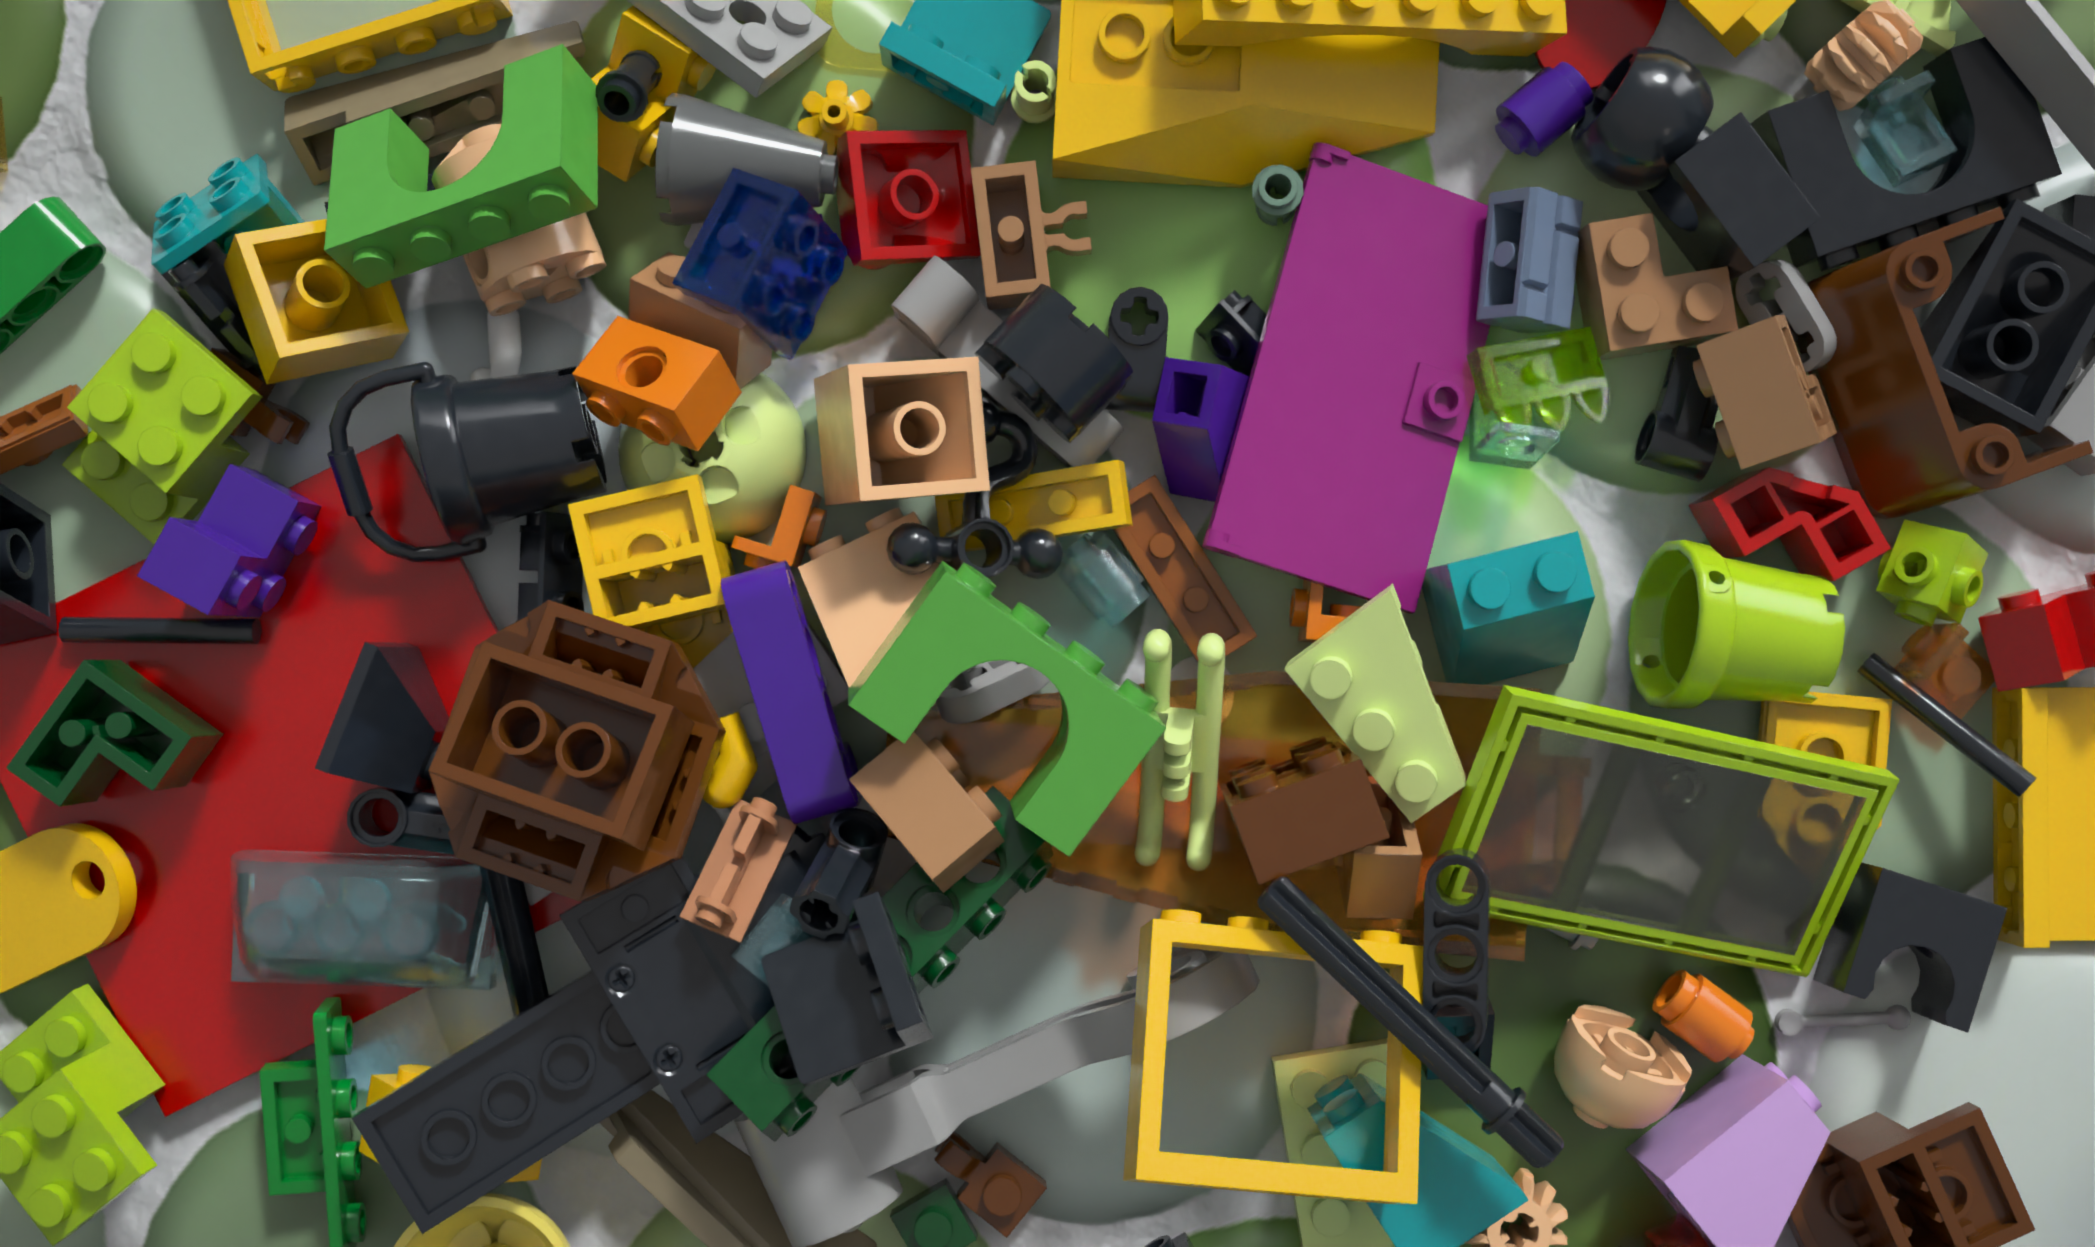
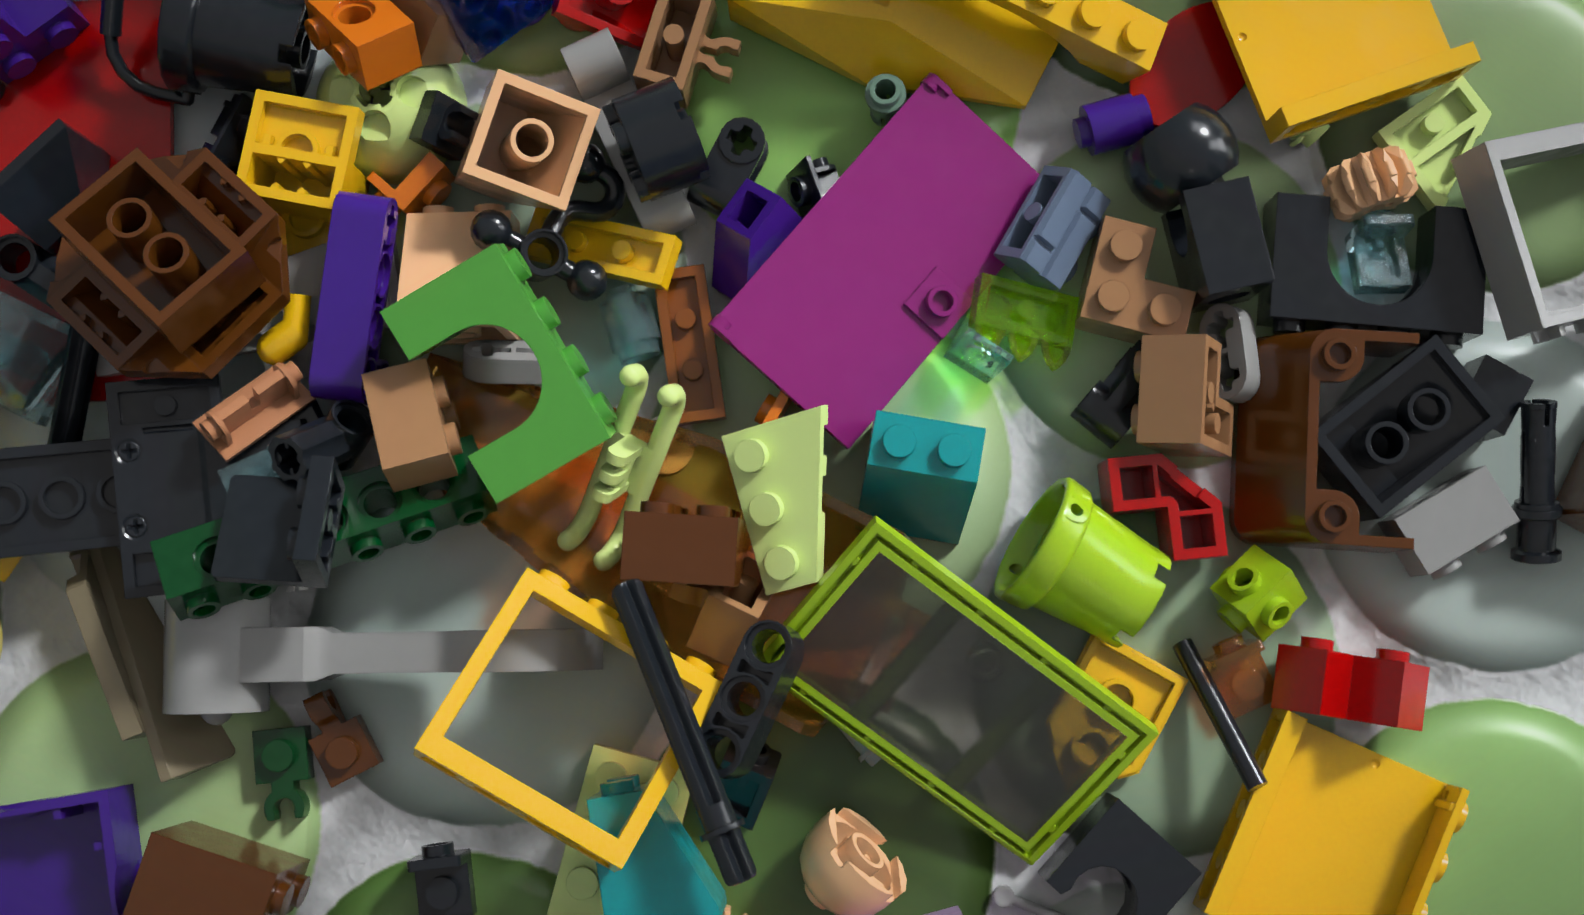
camera: 35 degrees right, 5 degrees down
(793, 447) = (443, 125): none -> black tile
(1704, 1016) = (937, 858): orange brick -> none

